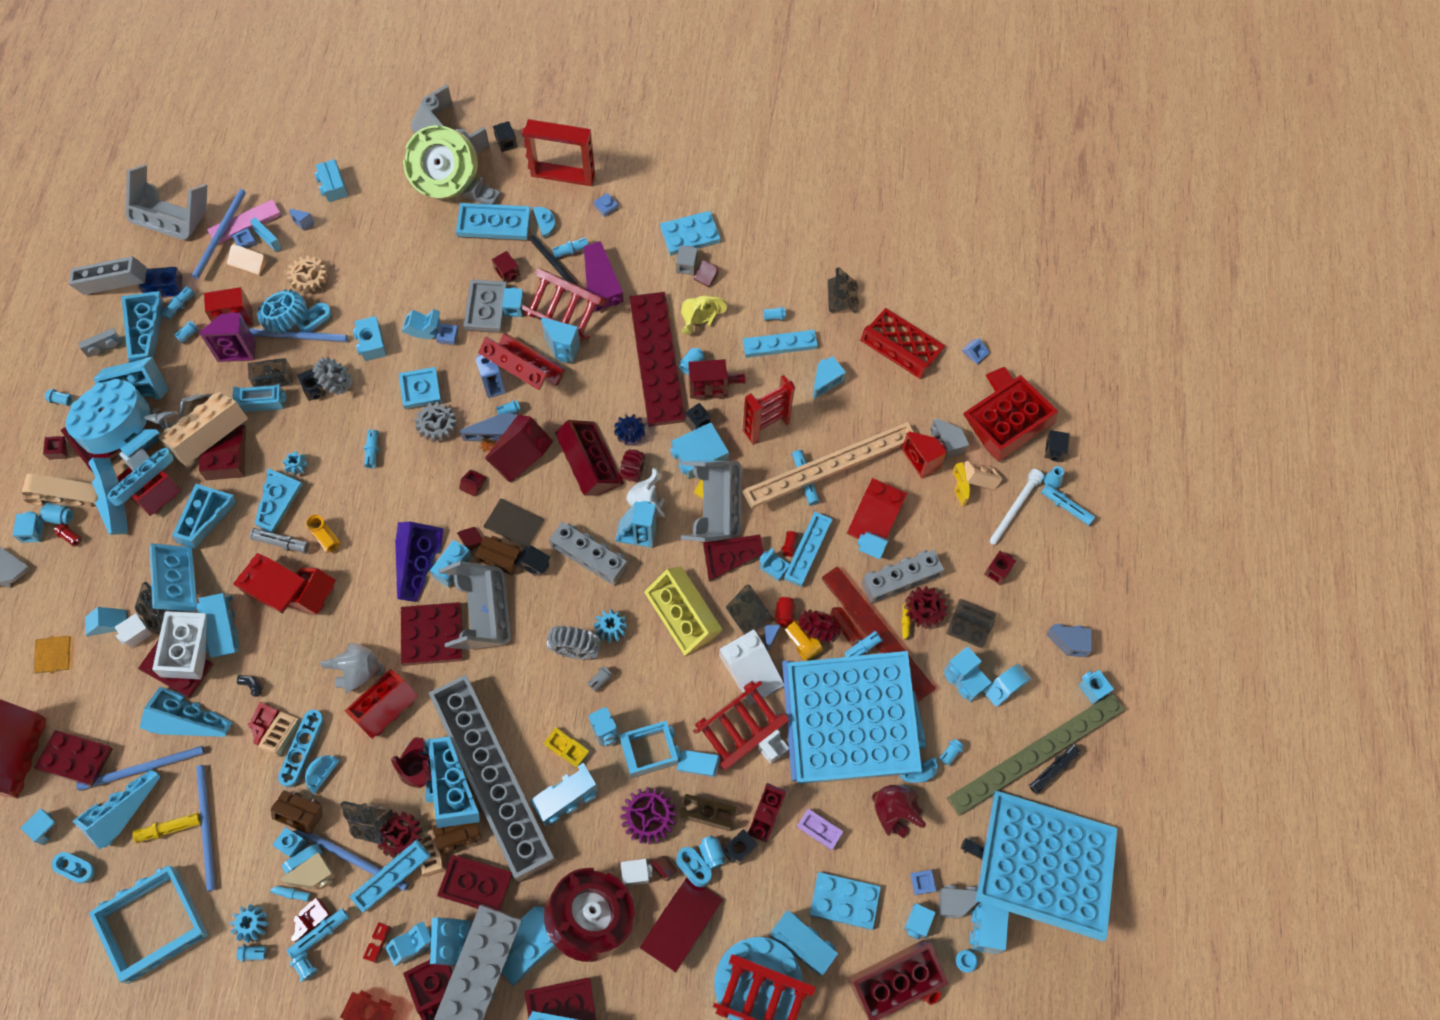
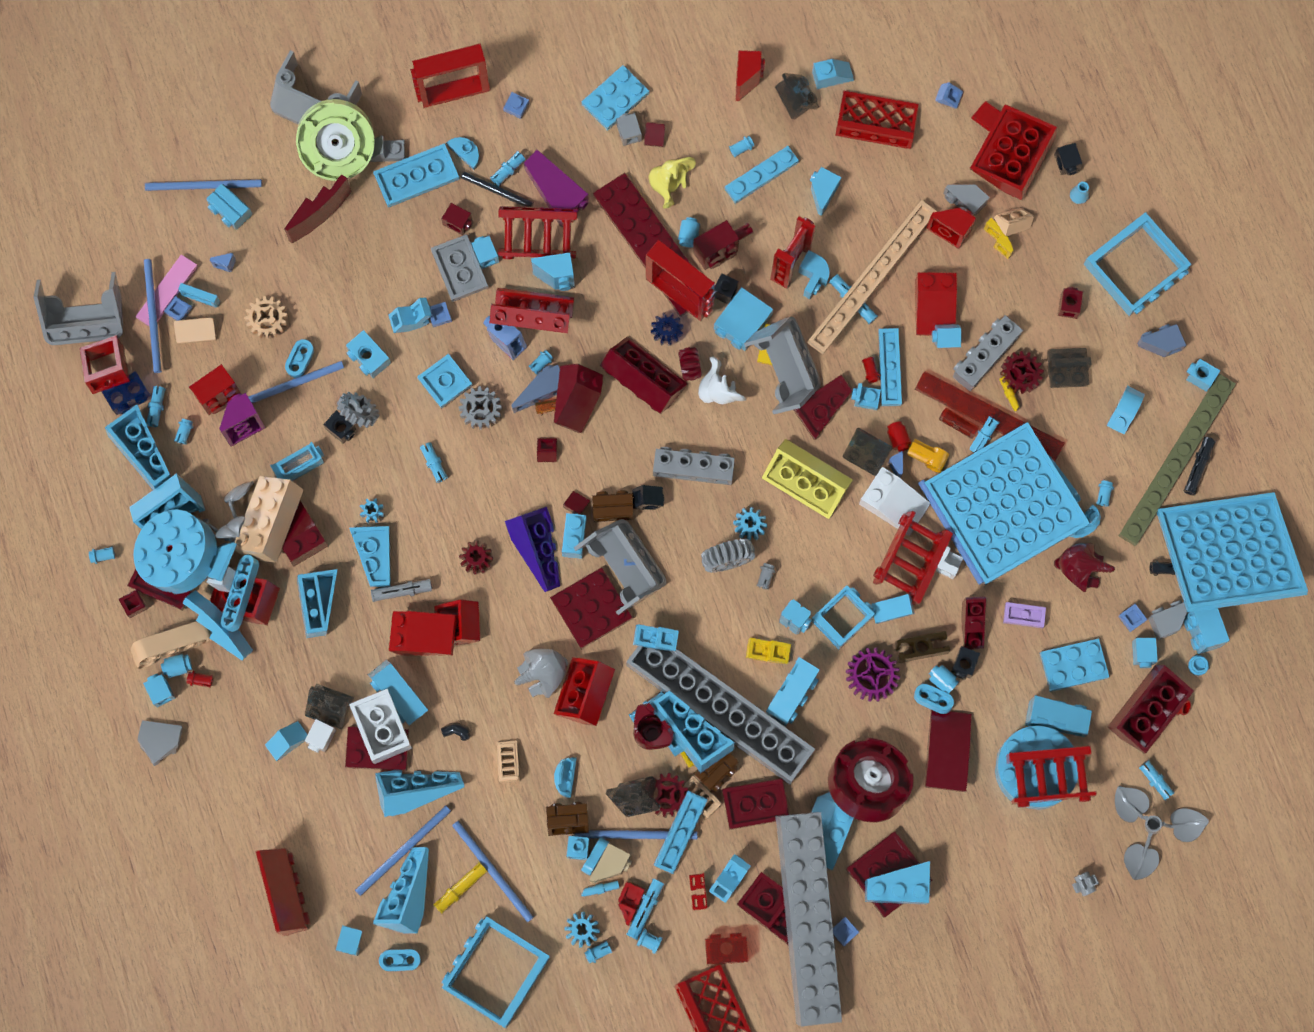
camera: 25 degrees left, 10 degrees up
(52, 654) = (256, 792): clear yellow piece -> none
(73, 758) = (339, 871): dark red plate -> none
(100, 342) = (103, 487): light grey plate -> none
(108, 275) = (76, 412): light grey brick -> none
(170, 245) = (117, 374): none -> red window
(172, 577) = (331, 671): medium azure plate -> none
(262, 720) = (486, 758): red slope -> none
(270, 373) = (295, 435): clear smoke brick -> none
(281, 311) = (262, 362): medium azure gear -> none
(298, 747) = (535, 764): medium azure beam -> none
(322, 157) = (202, 185): none -> medium blue piece
(323, 533) = (440, 564): light orange piece -> none
(356, 536) = (470, 563): none -> dark red gear
(396, 211) = (315, 212): none -> dark red slope
(448, 940) = (763, 859): medium azure plate -> none
(465, 683) = (655, 638): none -> medium azure slope
(505, 136) = (375, 77): black brick -> none
(513, 523) = (607, 470): clear smoke piece -> none
(636, 872) = (887, 727): white brick -> none
(638, 525) = (727, 419): medium azure wedge -> none
(655, 387) = (680, 281): none -> red window
(664, 867) = (908, 712): dark red slope -> none
(785, 440) = (817, 270): none -> medium azure brick
(809, 257) = (749, 71): none -> red slope
(819, 625) = (937, 435): dark red gear -> none
(882, 289) = (831, 73): none -> medium azure slope
(966, 675) = (1087, 418): medium azure brick -> none
(1034, 478) = (1062, 200): white piece -> none
(1067, 504) = (1080, 208): medium azure pin -> none
(1073, 532) = (1161, 240): none -> medium azure window

